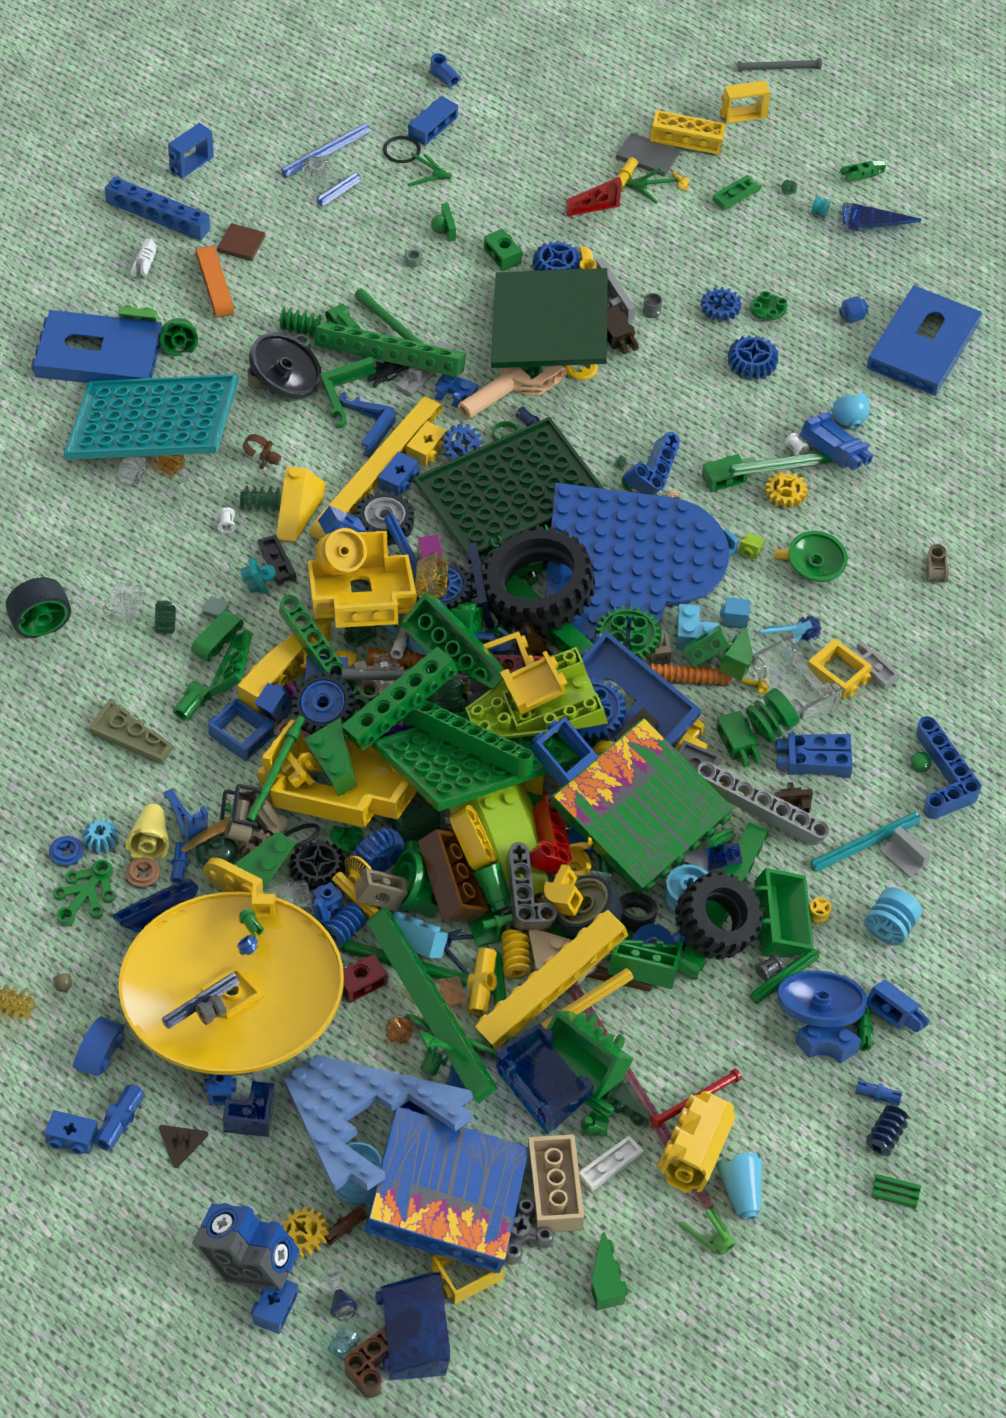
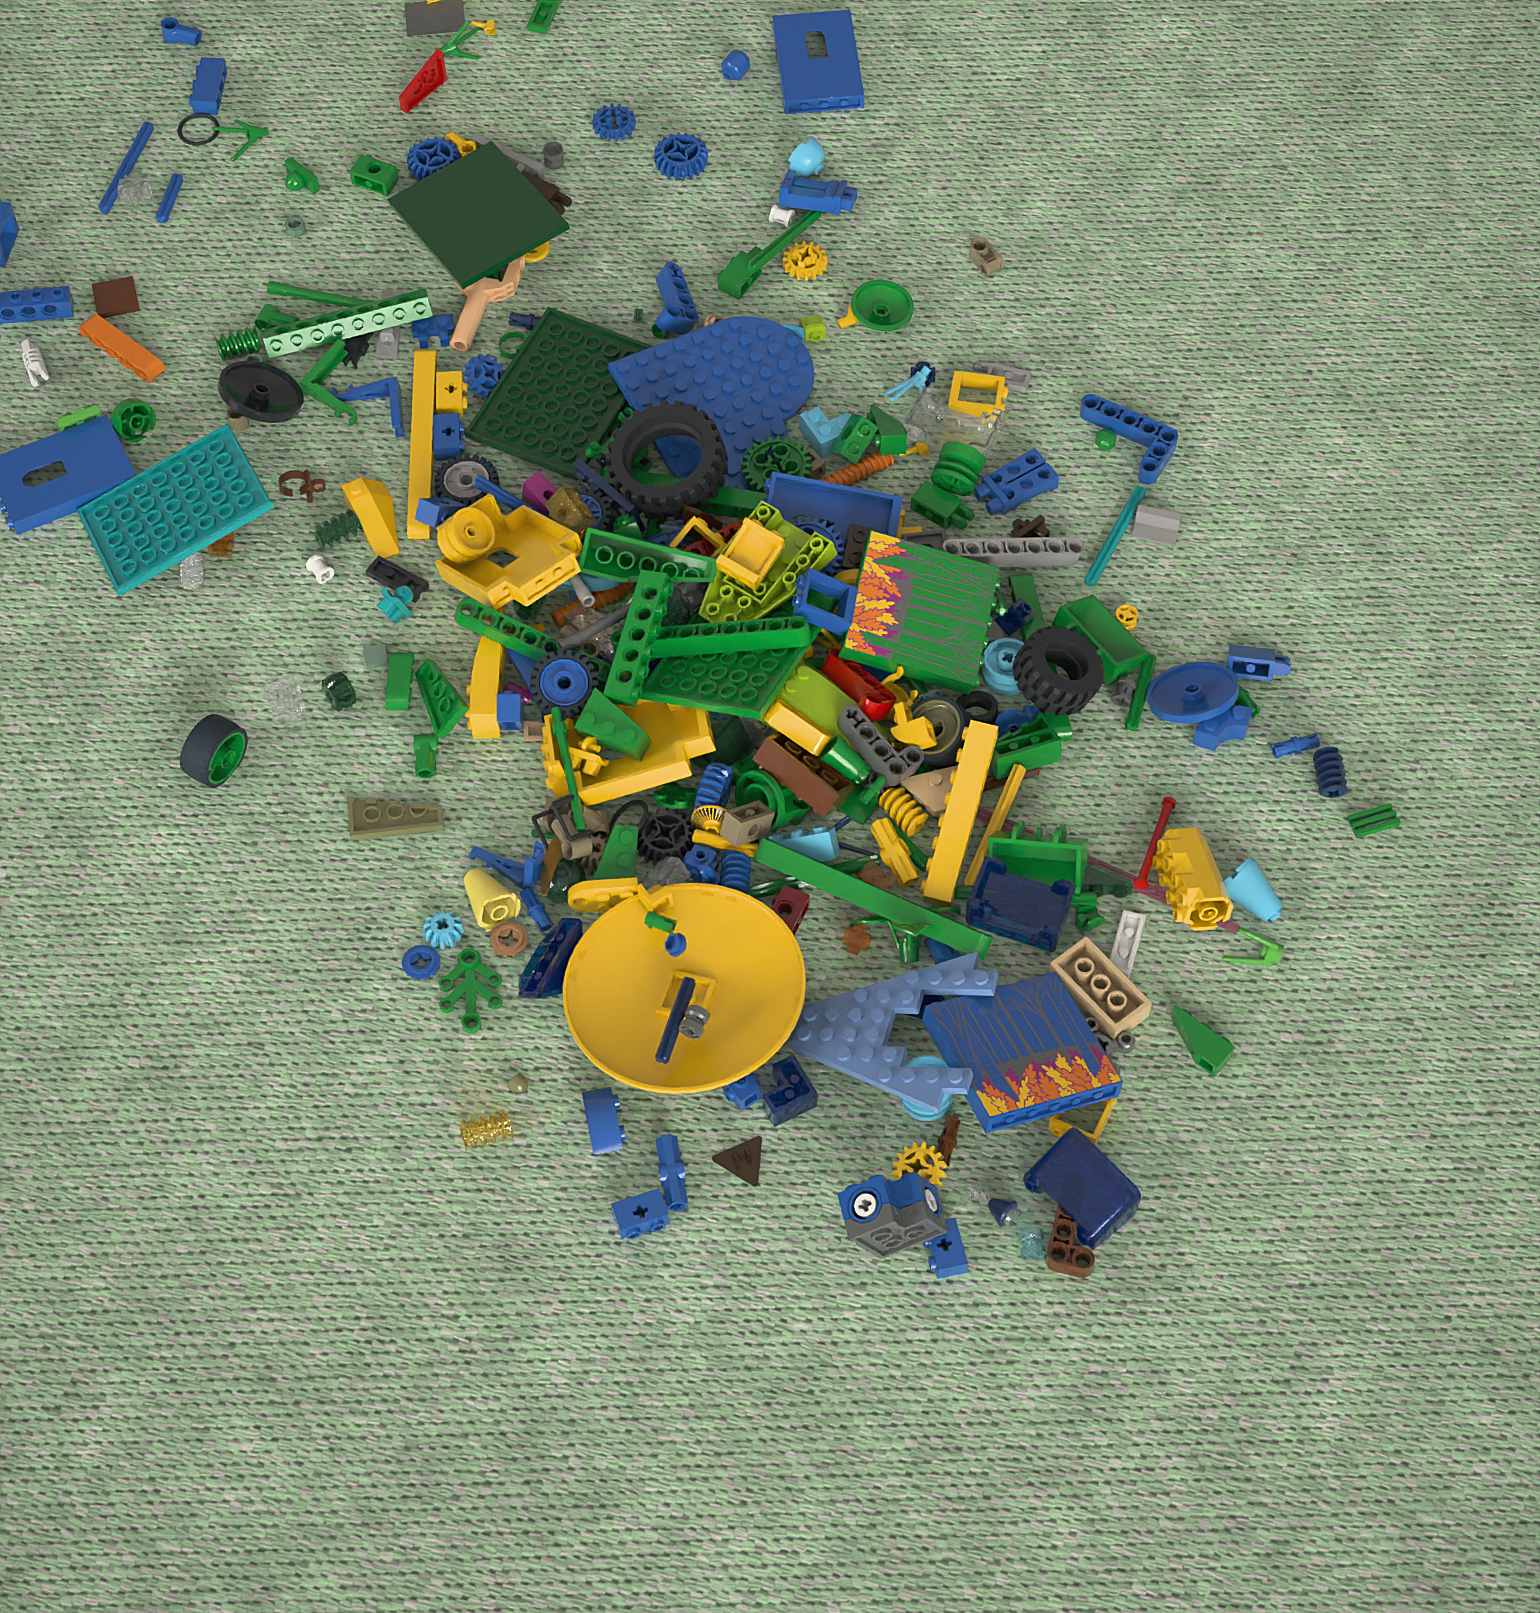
camera: 30 degrees left, 5 degrees up
(254, 742) = (493, 737): blue window -> none
(627, 171) = (429, 43): yellow pin -> none
(735, 612) = (850, 395): dark azure brick -> none
(768, 306) = (657, 102): green dish -> none
(893, 916) = (1194, 585): medium azure wheel -> none

